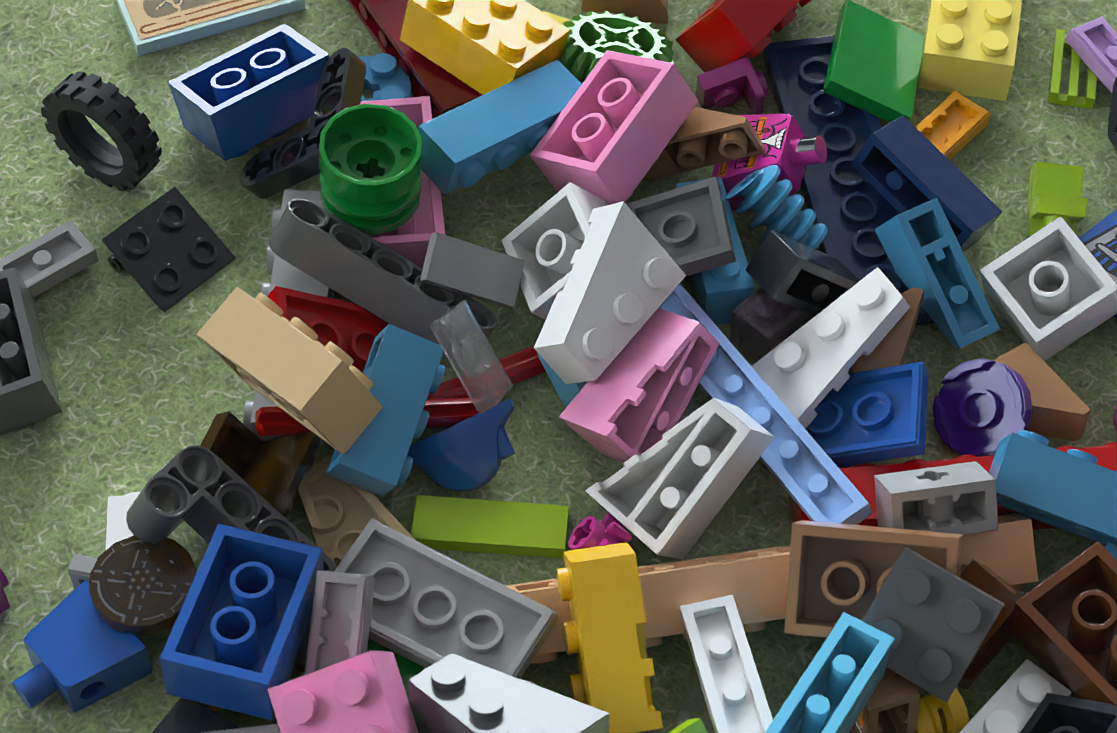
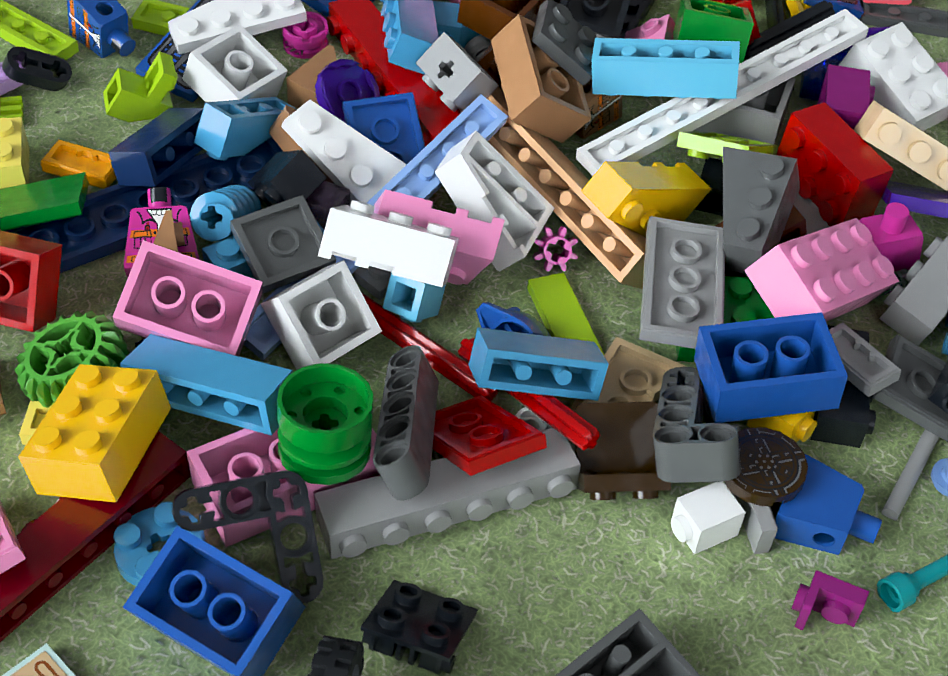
camera: 115 degrees left, 5 degrees down
(292, 367) = (573, 382): tan brick -> none
(339, 618) = (732, 306): light grey plate -> none
(471, 356) = (462, 326): clear tile -> none
(472, 270) = (373, 361): light grey tile -> none
(730, 82) = (77, 283): magenta bracket -> none

